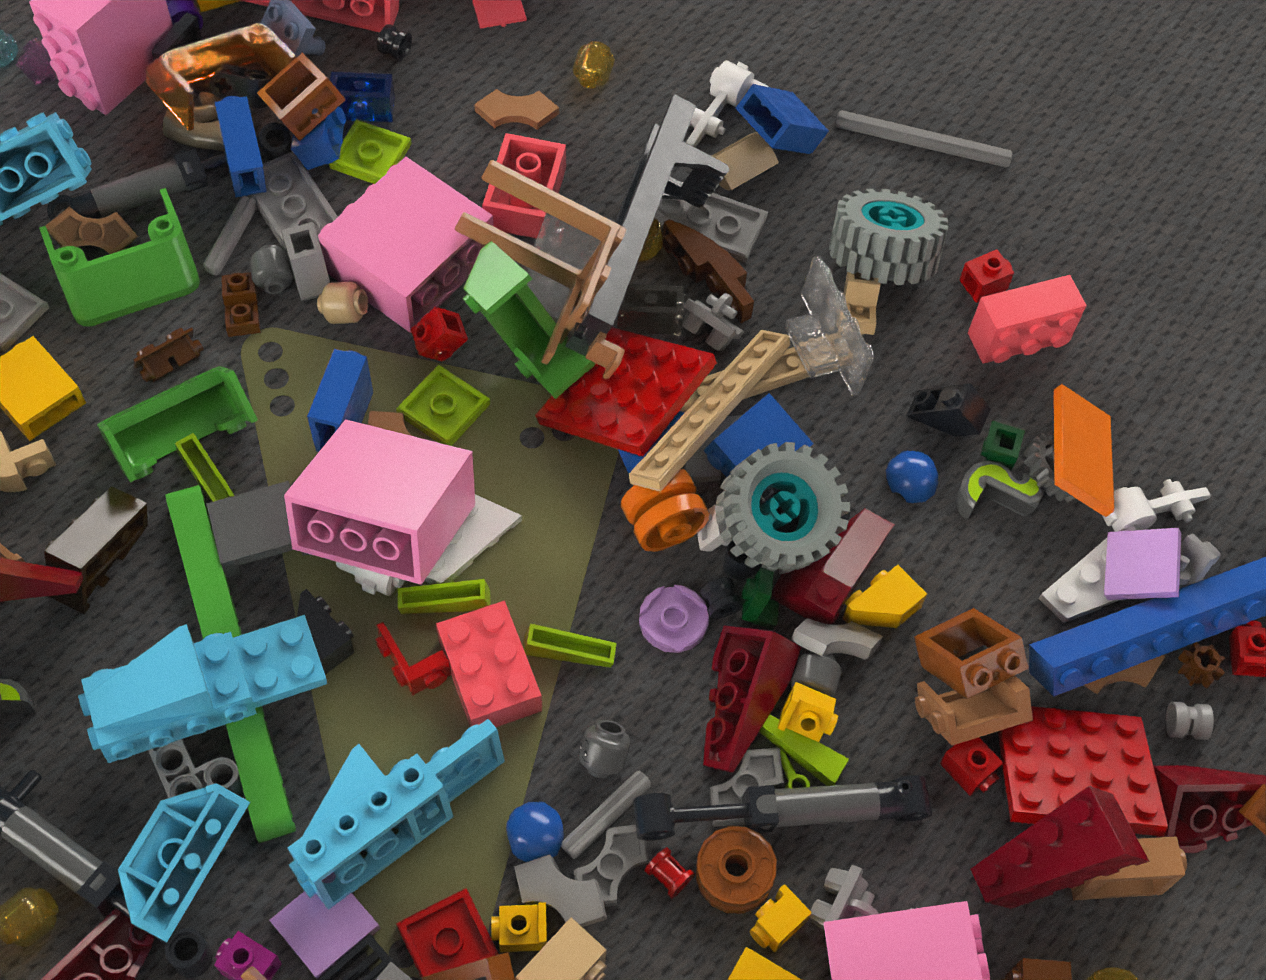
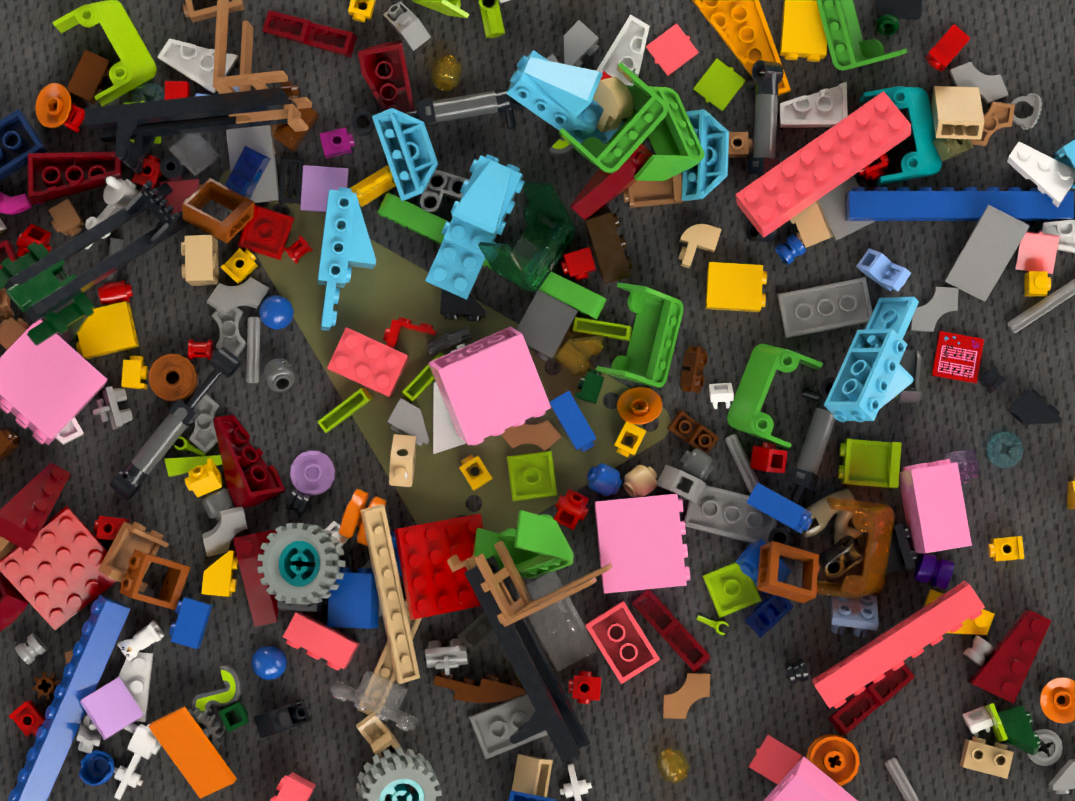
camera: 140 degrees right, 25 degrees up
(75, 230) = (814, 384): medium nougat tile -> none
(115, 134) = (870, 463): none -> lime panel
(139, 617) = (540, 245): none -> clear green windscreen
(148, 556) = (578, 264): none -> red brick
(170, 308) = (721, 393): none -> white tile
(199, 211) = (768, 458): none -> red brick
(248, 361) = (639, 405): none -> orange dish
(254, 466) = (578, 351): none -> clear yellow slope
(259, 868) = (374, 186): none -> yellow hinge
(284, 426) = (590, 386): none -> dark green brick
(306, 345) = (635, 433): none -> yellow brick
(374, 610) = (449, 340): none -> dark grey axle
(375, 333) = (604, 479): none -> blue head
(420, 869) = (298, 249): none -> red bush
(421, 136) = (712, 623): none -> lime hand
(469, 154) = (671, 630): none -> dark red slope
(496, 453) = (483, 476): none -> yellow brick
(509, 568) = (409, 420): none -> light grey slope
(562, 520) = (402, 467): none -> tan torso
(602, 181) = (593, 691): none -> red brick
(757, 604) = (276, 515): dark green bracket -> none
(836, 429) = (320, 641): none -> coral brick
(966, 580) = (191, 622): none -> blue brick
(1038, 608) = (141, 640): none -> white animal
(1213, 525) = (89, 772): none -> blue hair

